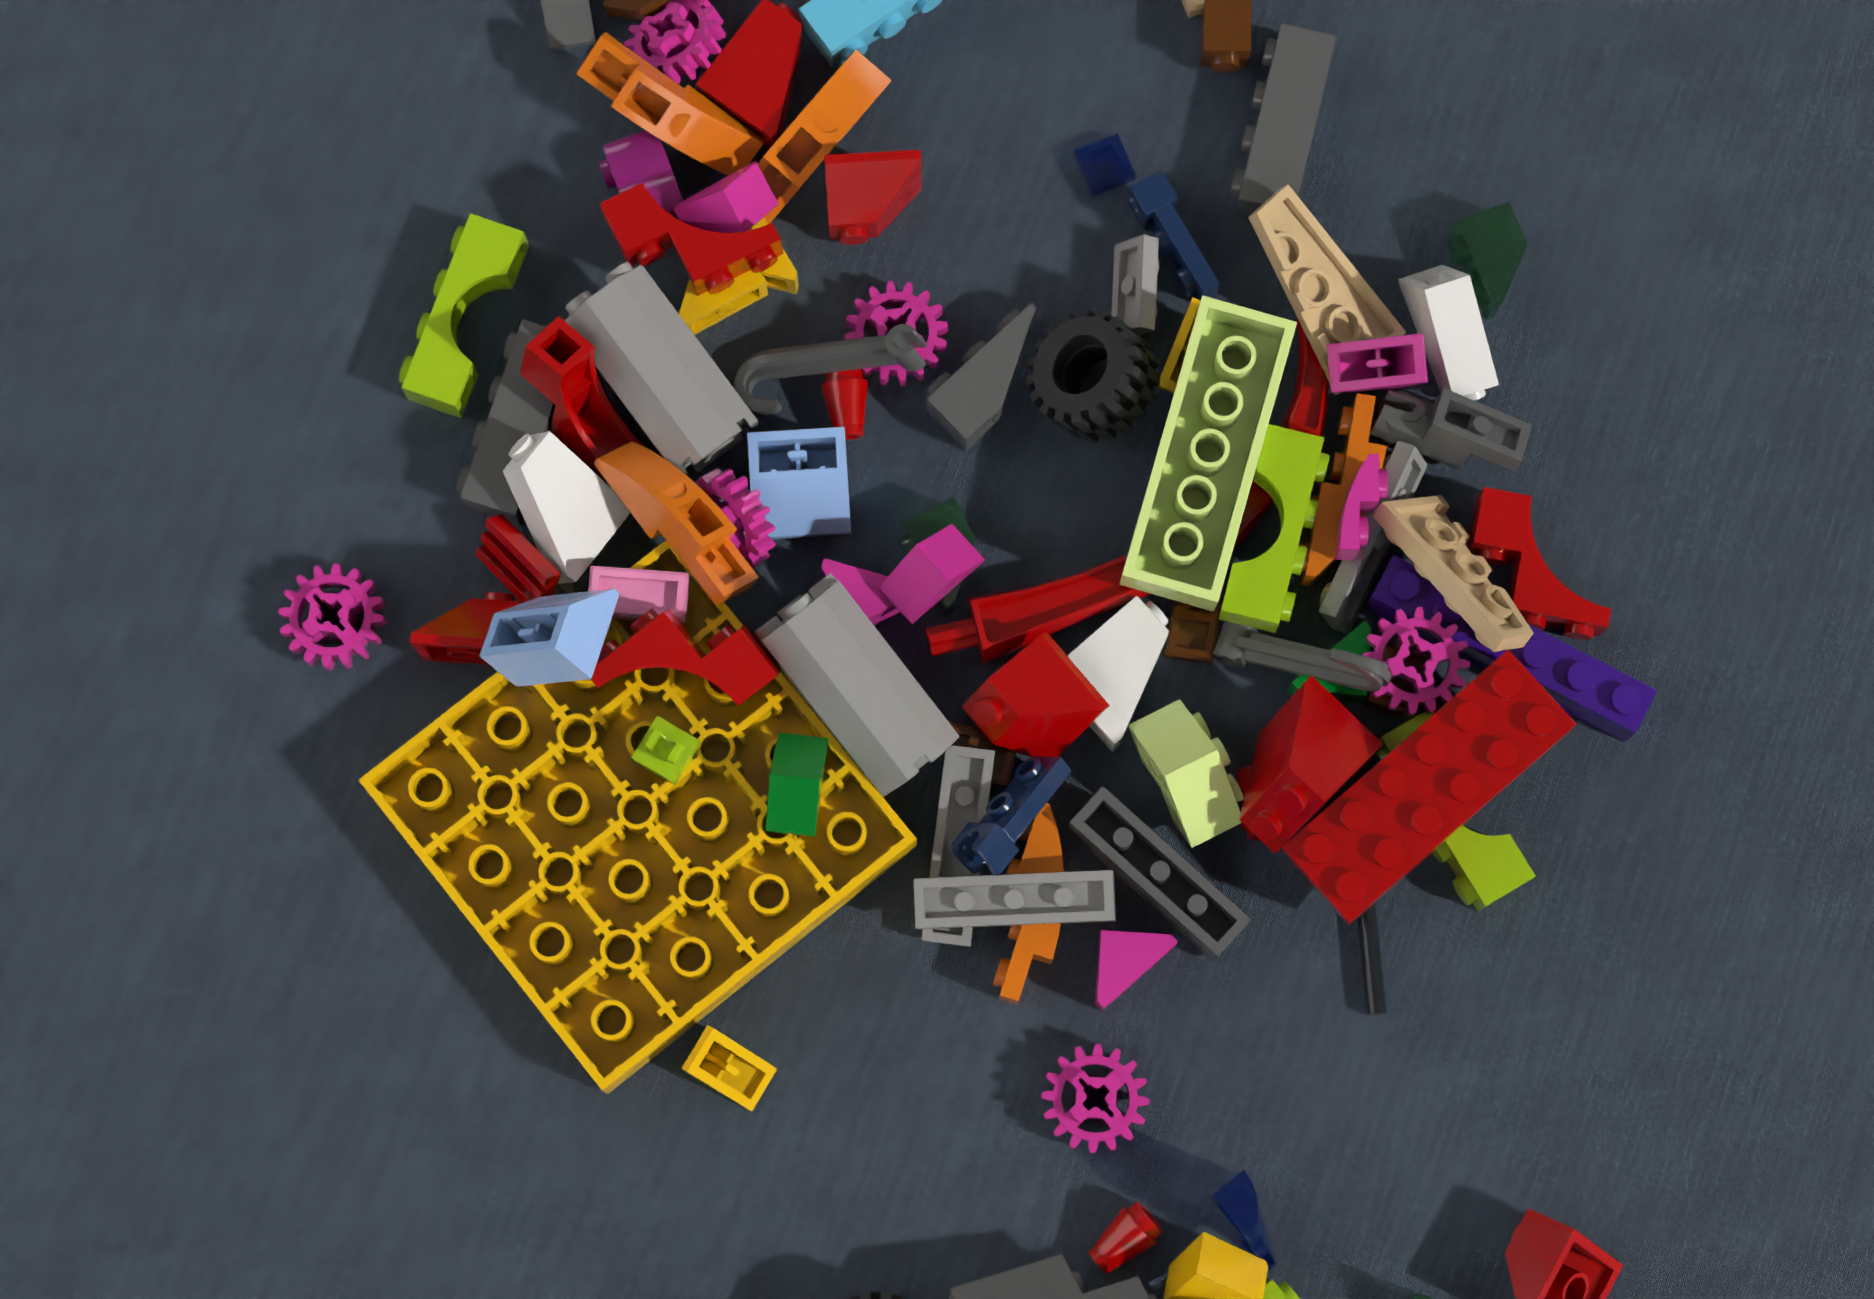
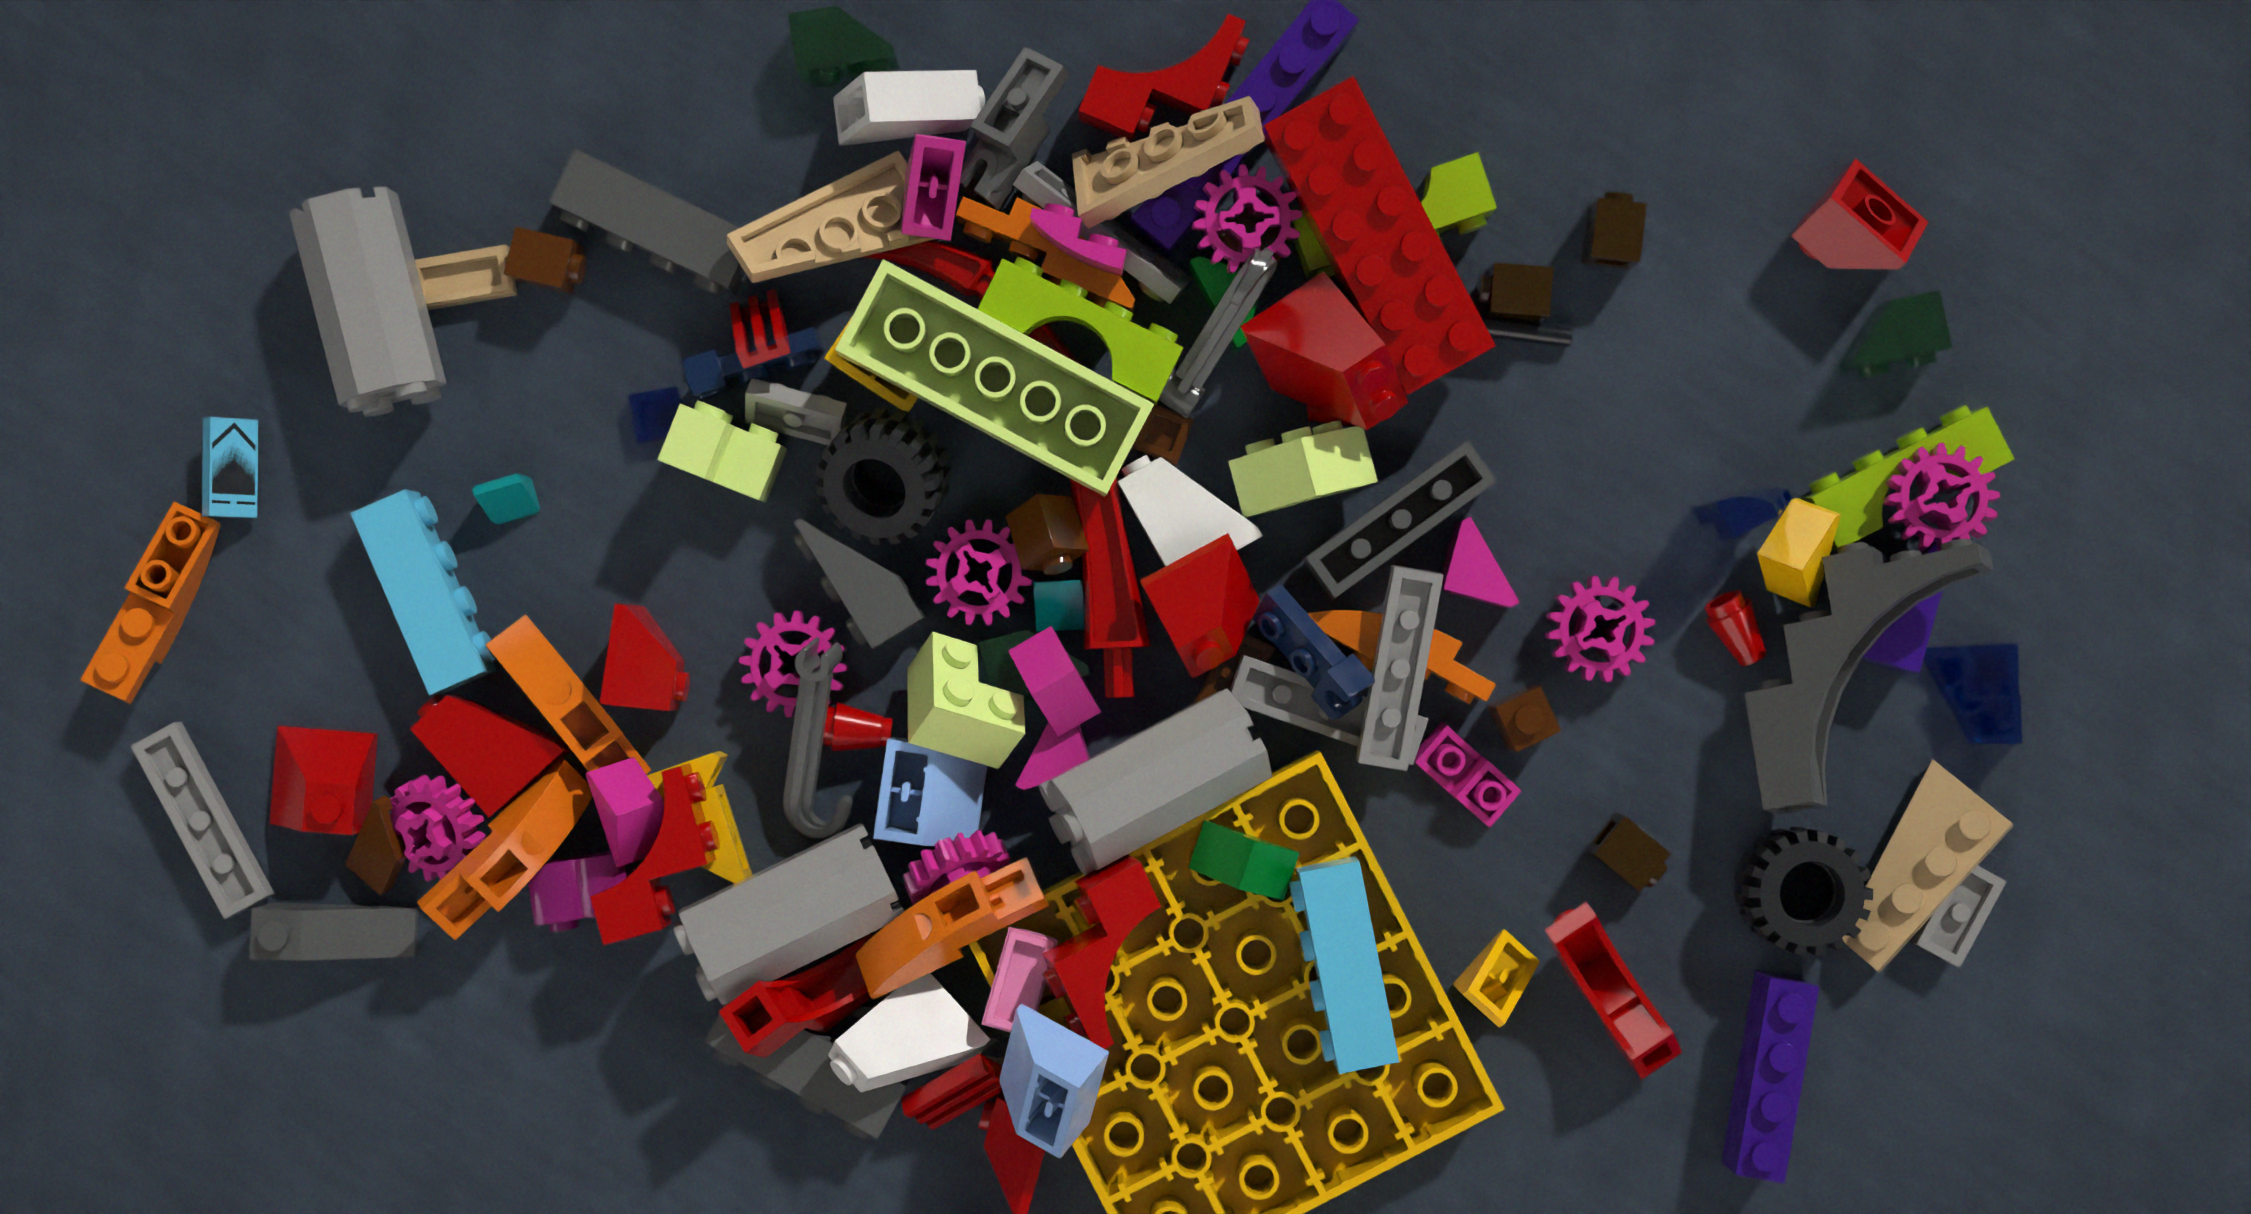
camera: 70 degrees left, 10 degrees up
(483, 261) = (630, 1068): lime arch -> none
(666, 750) = (1183, 983): lime tile -> none
(714, 899) = (1346, 965): none -> medium azure brick
(739, 1179) = (1612, 990): none -> red arch
(877, 1174) = (1629, 852): none -> dark brown brick
(883, 487) = (956, 711): none -> yellowish green brick
(922, 998) = (1466, 774): none -> dark pink slope
(990, 1039) = (1524, 718): none -> reddish brown brick
(996, 44) = (507, 498): none -> teal slope
(1005, 473) = (960, 585): none -> dark pink gear
(1005, 568) = (1059, 605): none -> teal slope
(1072, 540) = (1047, 533): none -> reddish brown brick
(1084, 214) = (715, 450): none -> yellowish green brick
(1203, 227) = (755, 313): none -> red tile
(1408, 946) = (1516, 292): none -> dark brown brick
(1491, 1032) = (1614, 231): none -> dark brown brick

